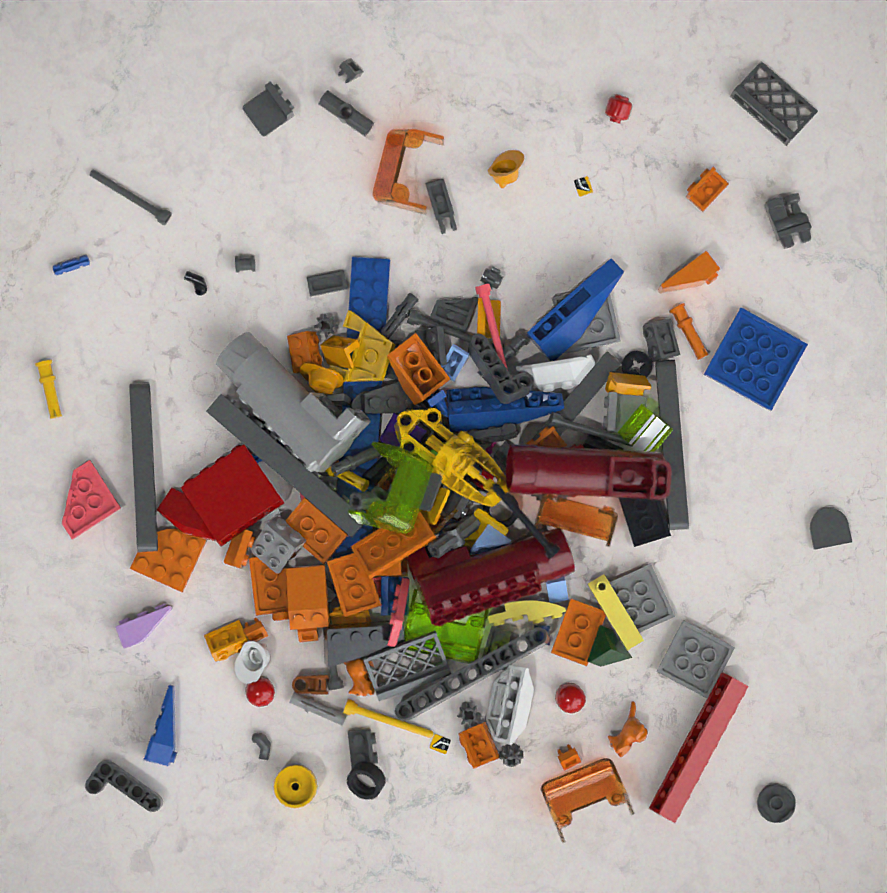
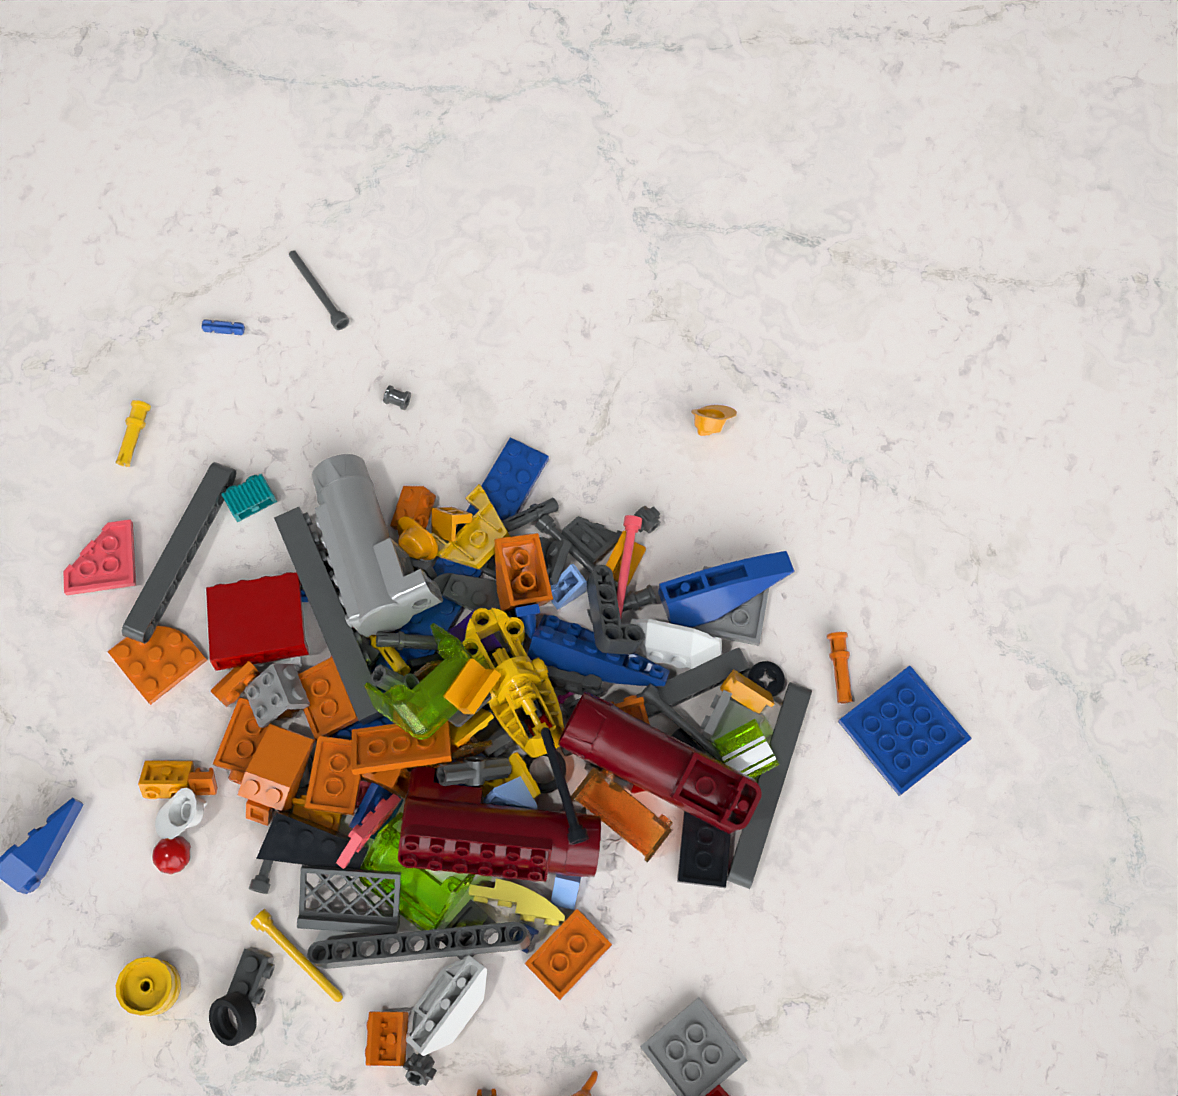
camera: 20 degrees right, 15 degrees down
(137, 630) = (79, 721): lavender slope -> none
(171, 400) = (249, 497): none -> teal brick
(181, 514) = (192, 619): red piece -> none
(198, 282) = (341, 396): black arm -> none
(263, 743) = (142, 917): dark grey arm -> none
(269, 109) = (497, 266): dark grey bracket -> none
(297, 698) = (207, 882): light grey pin -> none
(312, 685) = (235, 873): dark orange piece -> none
(325, 331) = (448, 498): dark grey gear -> none
(327, 283) = (471, 453): dark grey tile -> none
(351, 69) = (597, 264): dark grey tile -> none
(355, 120) = (577, 309): dark grey piece -> none
(361, 682) = (289, 891): orange animal -> none
(386, 188) = (581, 386): clear orange windscreen -> none
(426, 478) = (471, 687): none -> light orange panel
(440, 744) = (344, 1015): sticker -> none
(441, 203) = (628, 424): dark grey hinge -> none
(469, 720) = (386, 992): dark grey gear -> none
(570, 698) = (523, 1031): red hair -> none
(583, 186) = (786, 472): sticker -> none
(607, 648) = (593, 989): dark green slope -> none
(615, 612) = (622, 949): light yellow piece -> none
(618, 108) = (856, 409): red head -> none
(643, 598) = (652, 949): light grey plate -> none
(661, 340) = (805, 662): dark grey bracket -> none
(695, 274) = (868, 606): orange slope -> none
(706, 189) = (919, 526): orange bracket -> none
(760, 111) = (1012, 478): dark grey fence -> none
(788, 226) = (996, 603): dark grey hips -> none
(829, 528) = (918, 965): dark grey tile -> none

